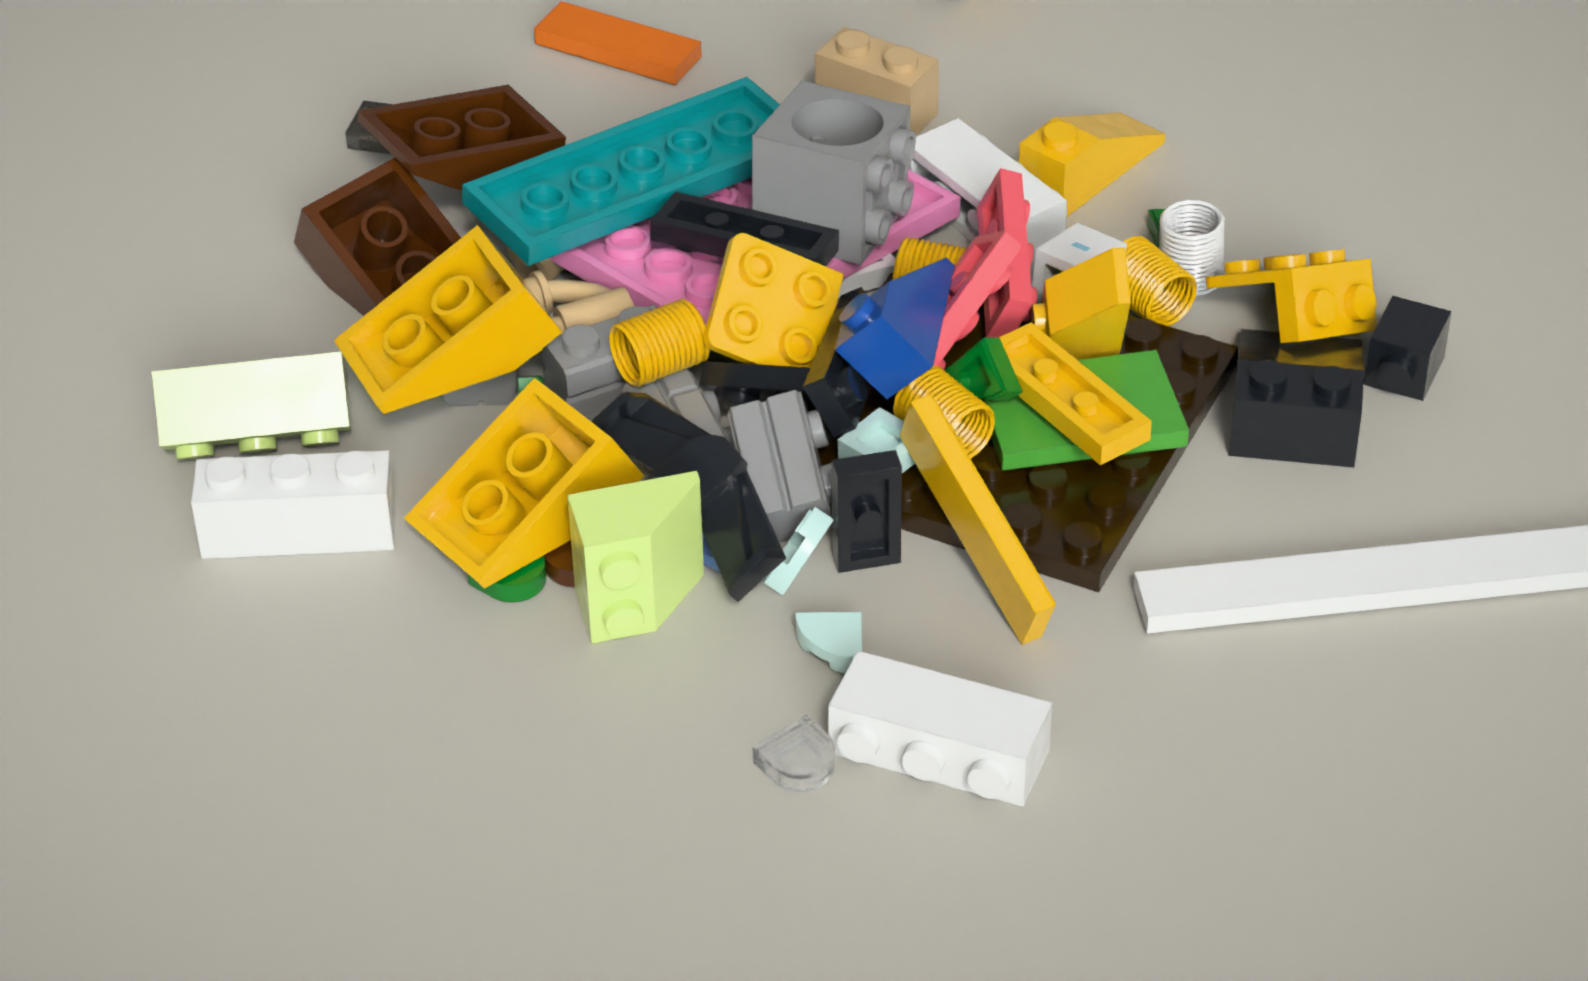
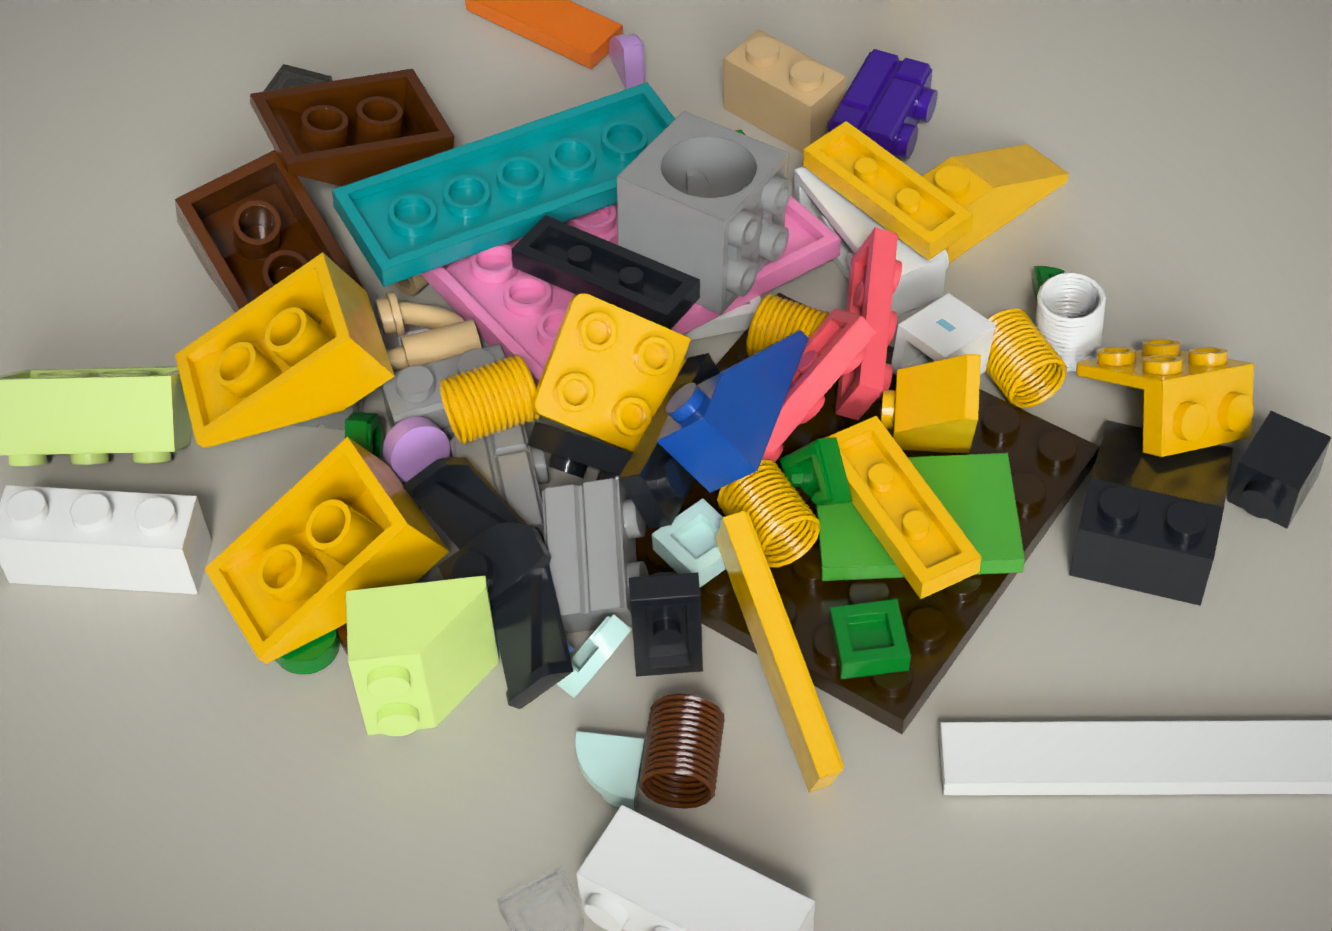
camera: 10 degrees right, 10 degrees up
(589, 392) = (414, 446): none -> lavender tile
(711, 66) = (628, 59): none -> lavender tile
(900, 612) = (682, 751): none -> reddish brown piece
(978, 87) = (888, 101): none -> dark purple brick
(997, 143) = (887, 190): none -> yellow plate
(1057, 507) = (869, 639): none -> green tile

